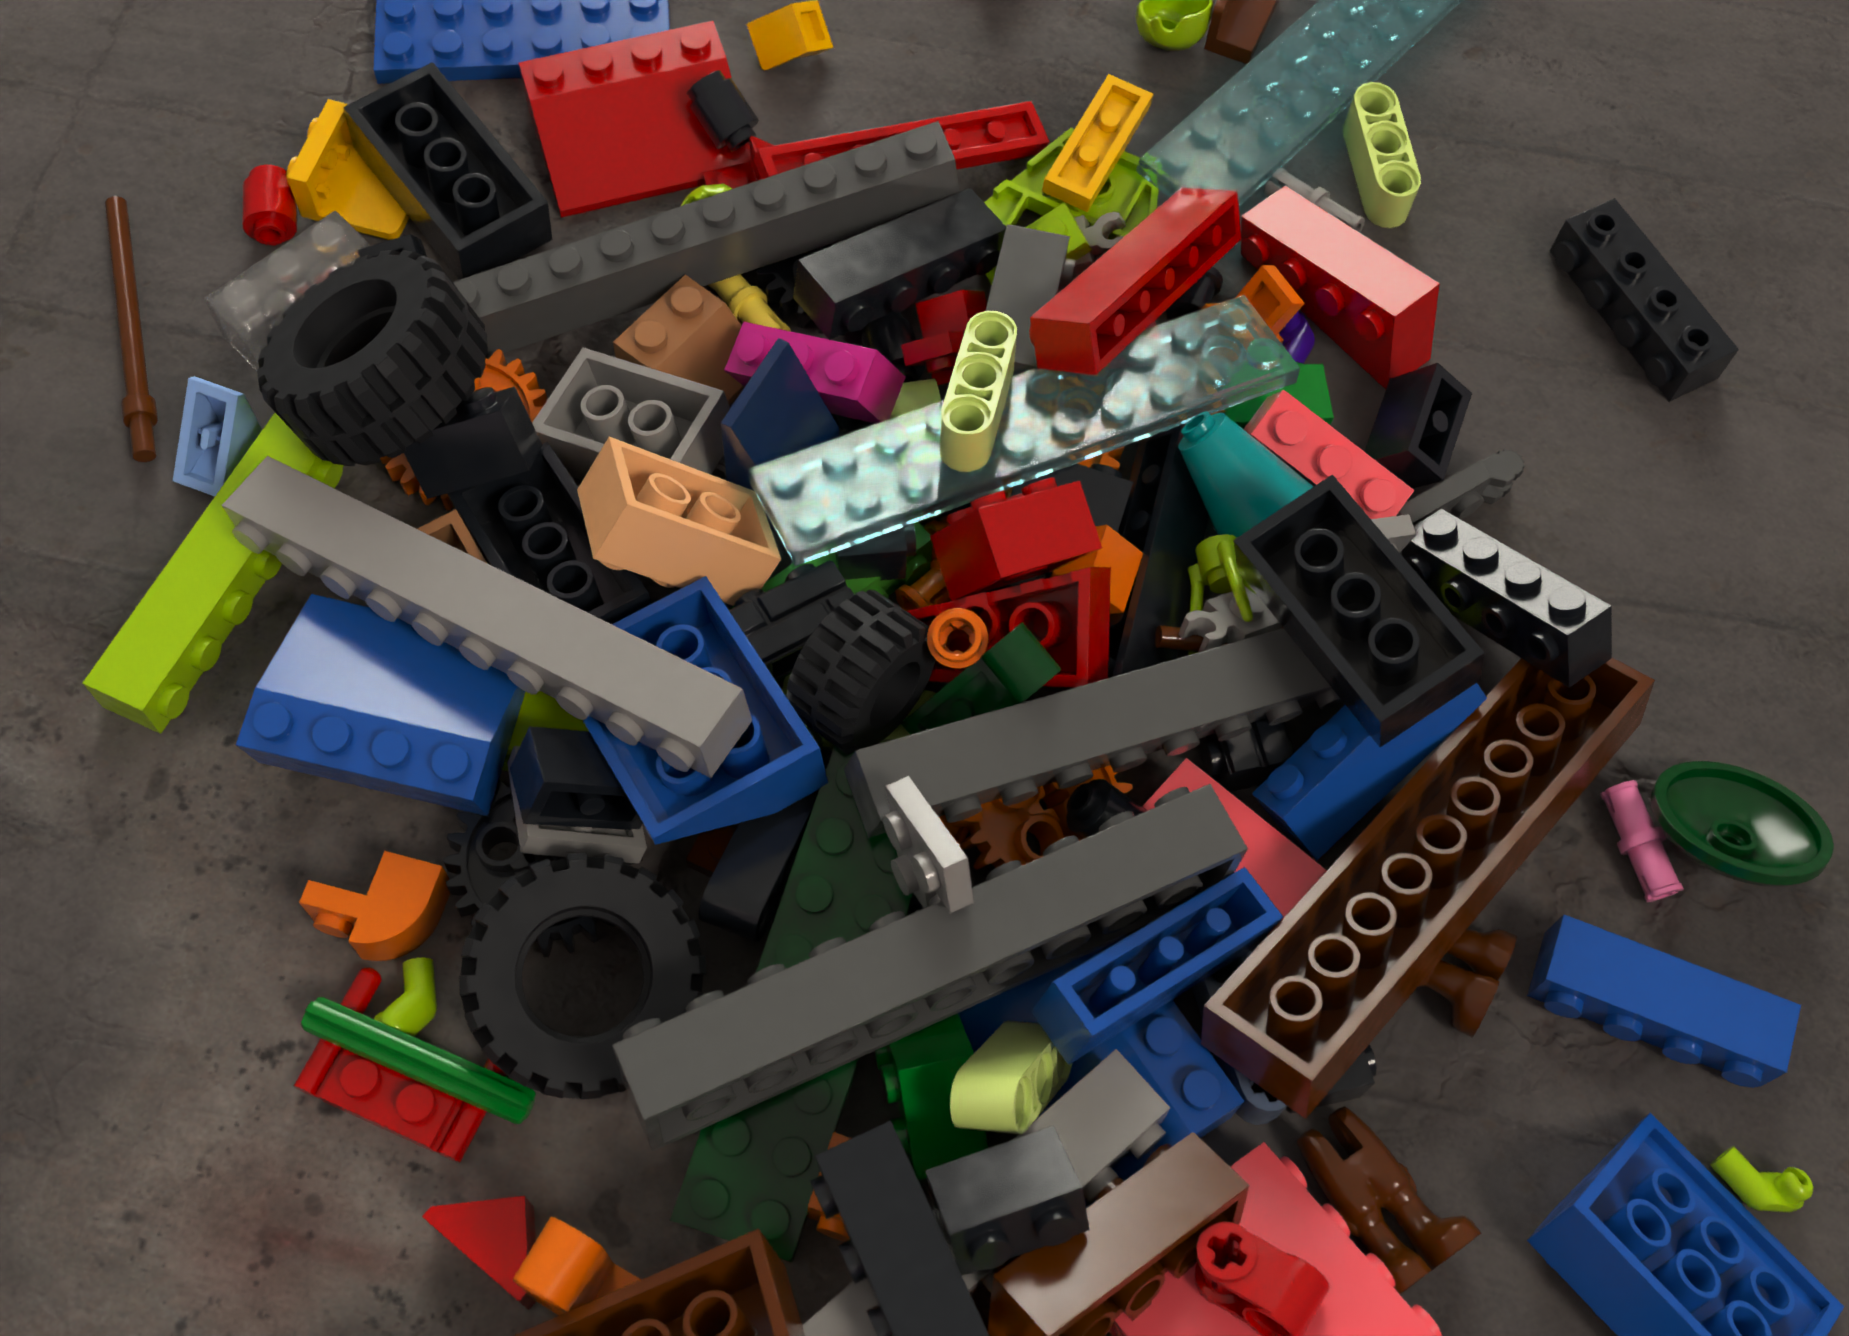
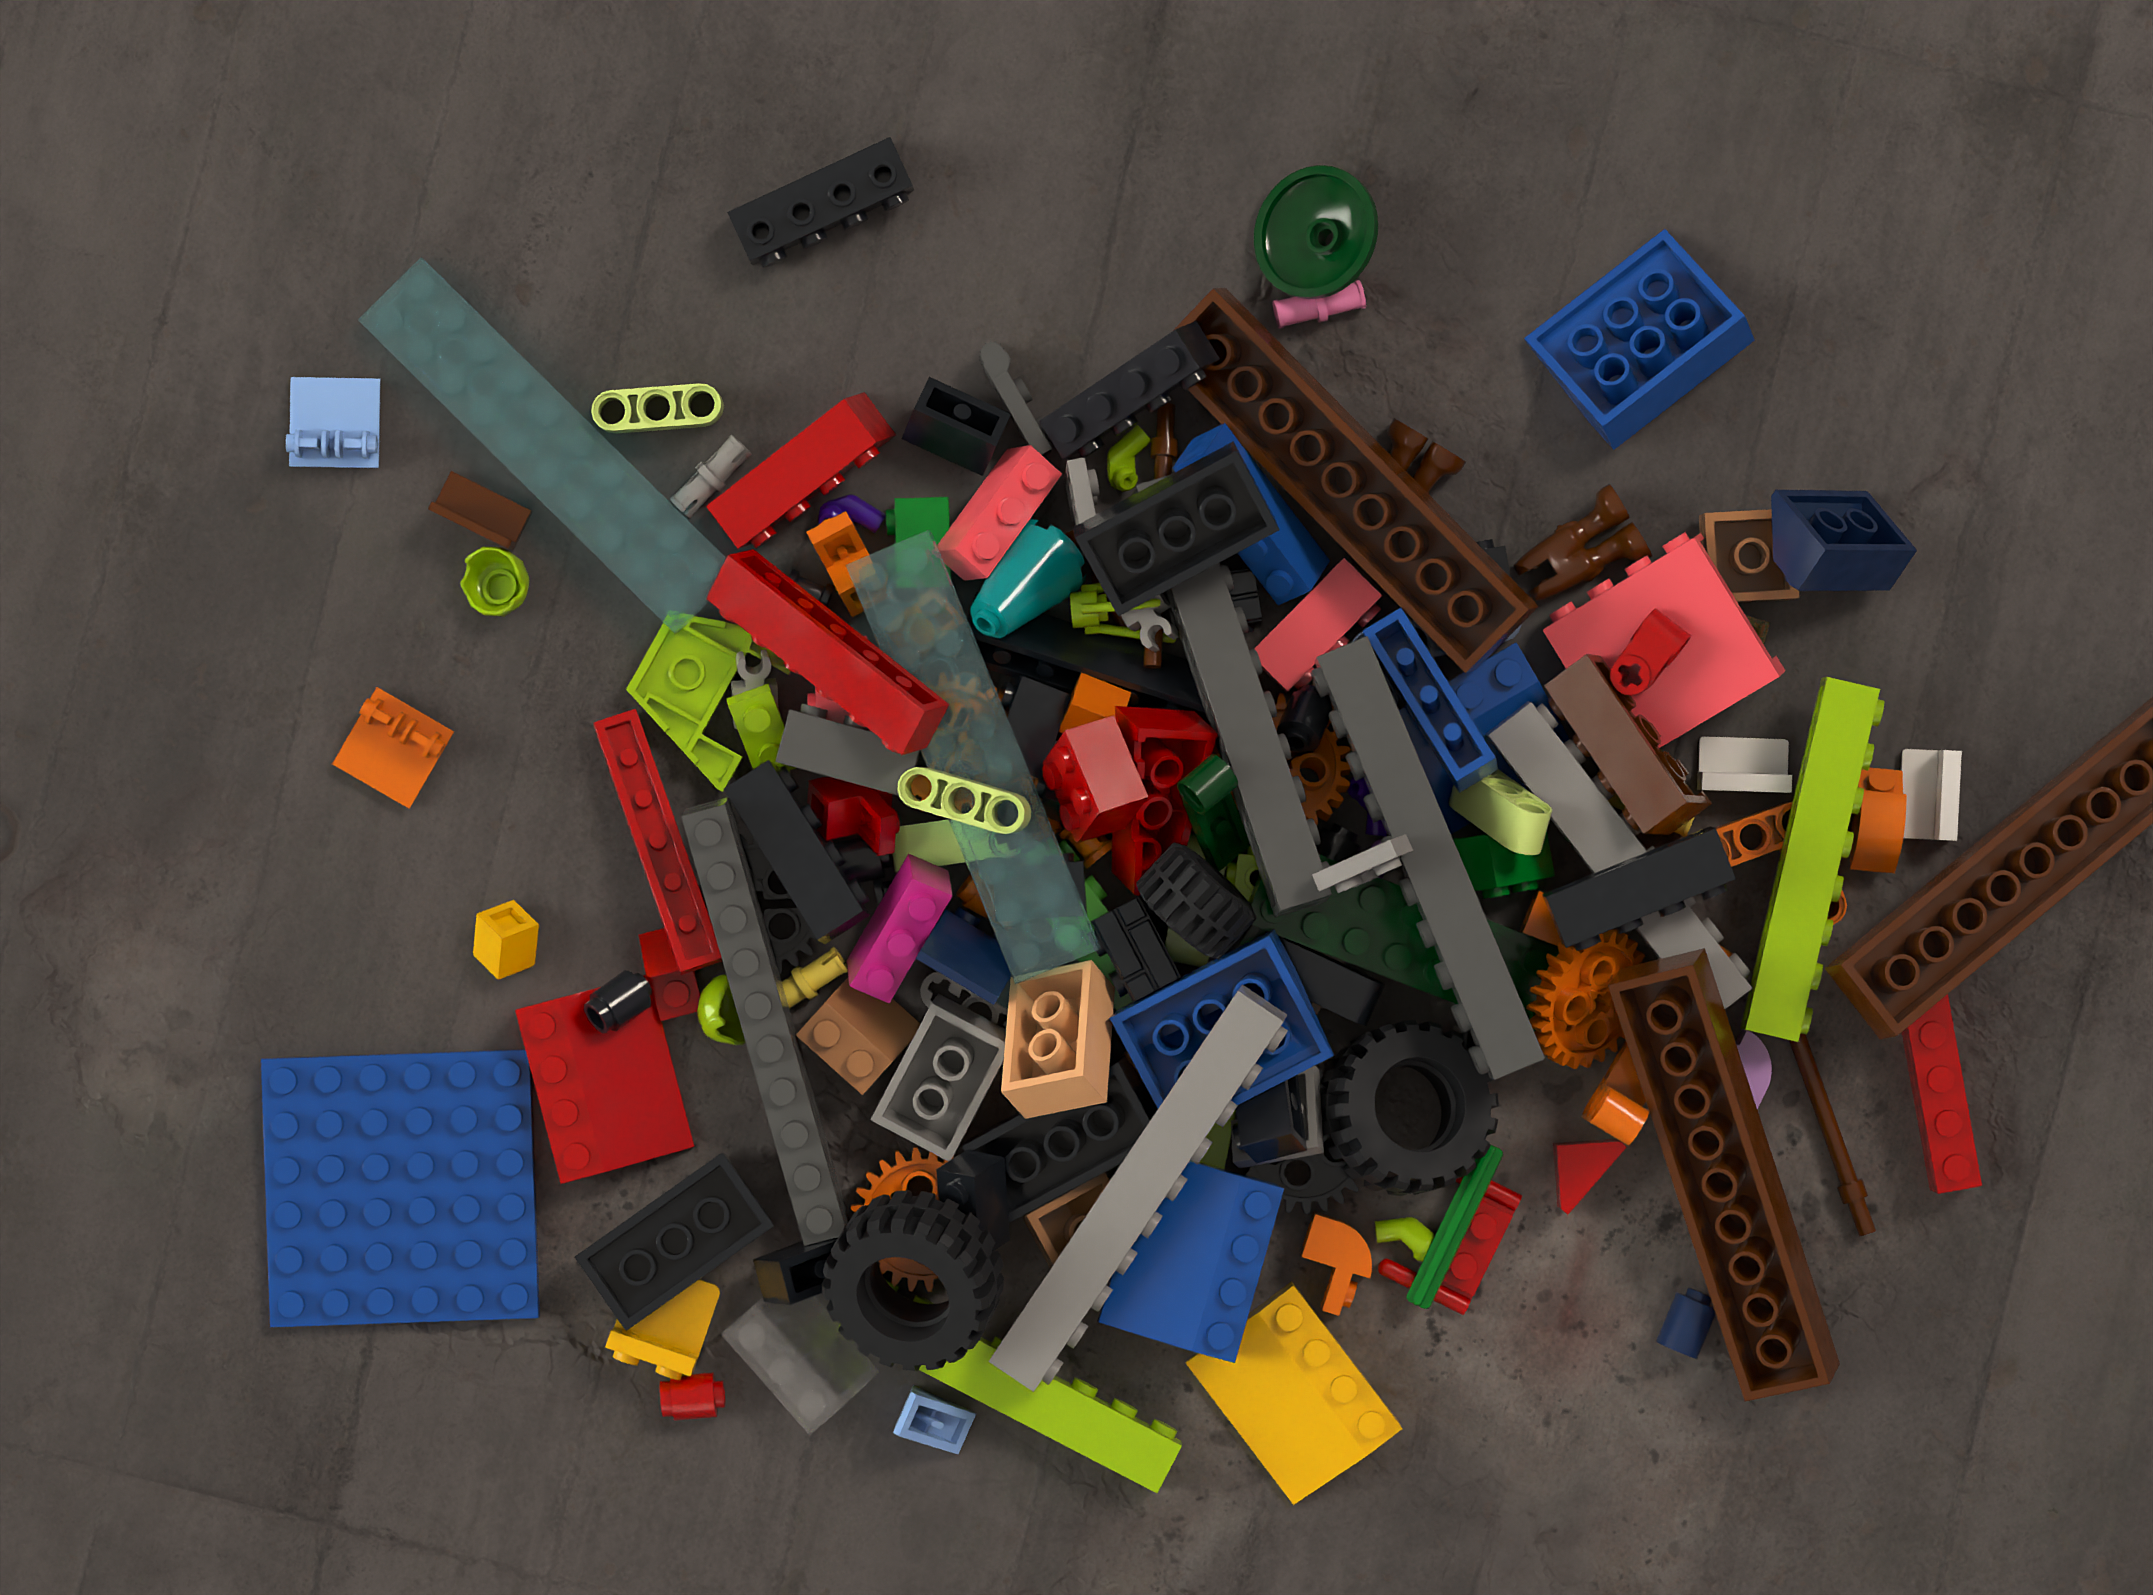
camera: 85 degrees left, 25 degrees up
(138, 406) = (892, 1487): reddish brown bar -> none
(203, 872) = (1296, 1396): none -> yellow slope
(769, 1192) = (1574, 1003): none -> orange gear
(954, 624) = (1193, 831): orange cone -> none
(1008, 1200) = (1597, 821): black brick -> none
(1097, 143) = (656, 668): yellow plate -> none
(1664, 1002) = (1446, 317): blue brick -> none
(1763, 1189) = (1583, 268): lime arm -> none

